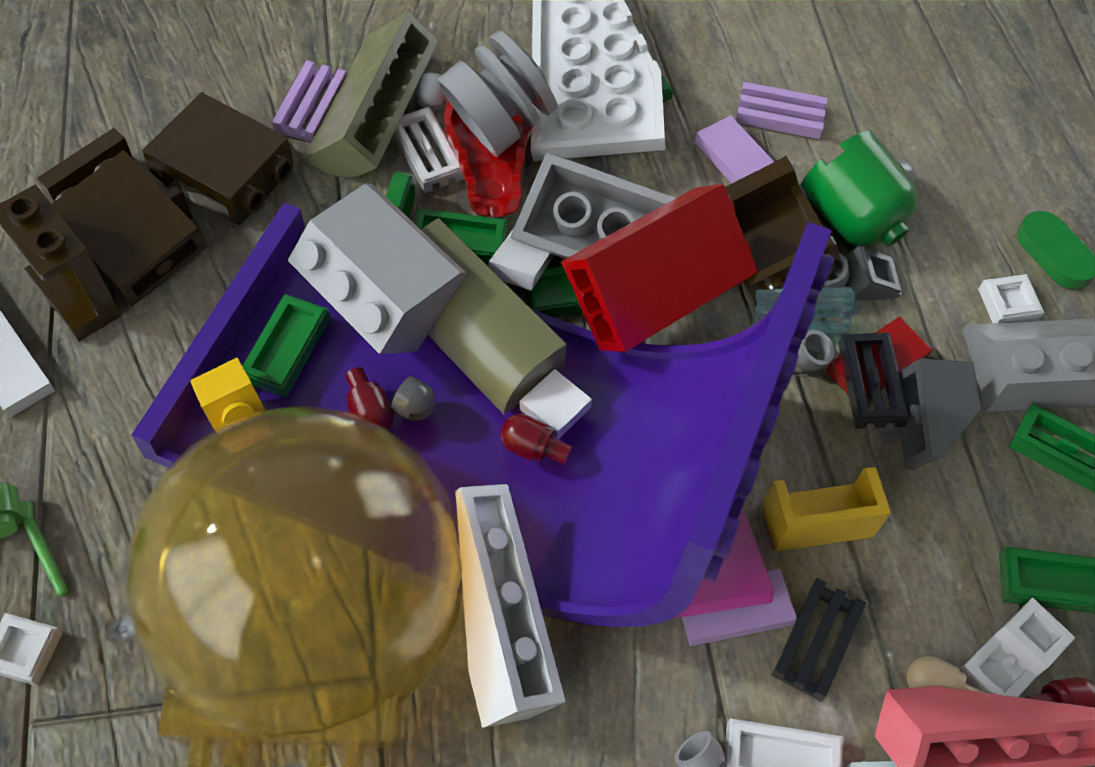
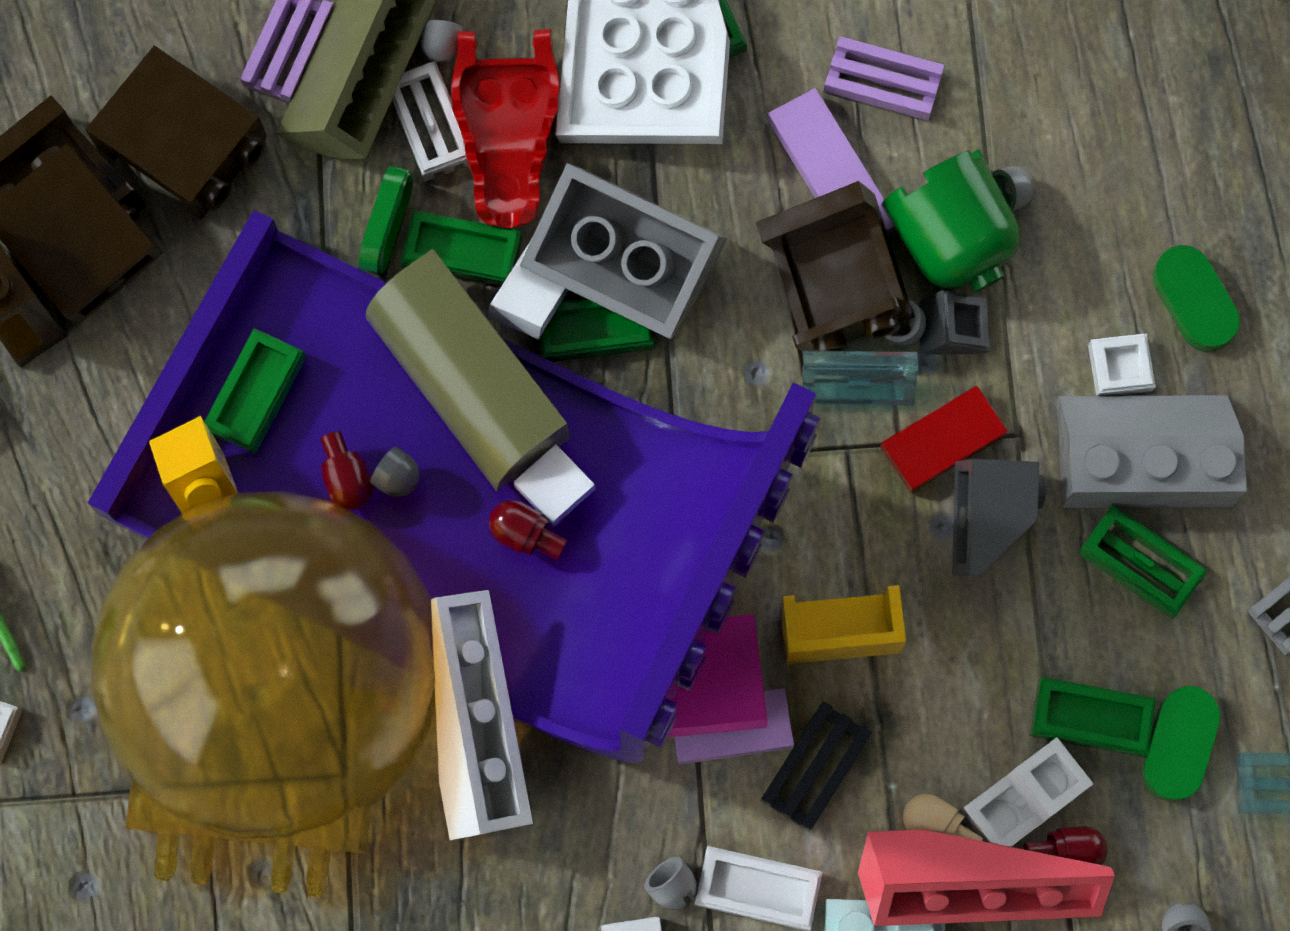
camera: 10 degrees right, 15 degrees up
(377, 270) = (357, 315): light grey slope -> none
(498, 93) = (518, 75): light grey wheel -> none
(660, 268) = (689, 325): red brick -> none
(815, 346) = (867, 417): light grey hinge -> none
(877, 415) = (926, 517): black tile -> none

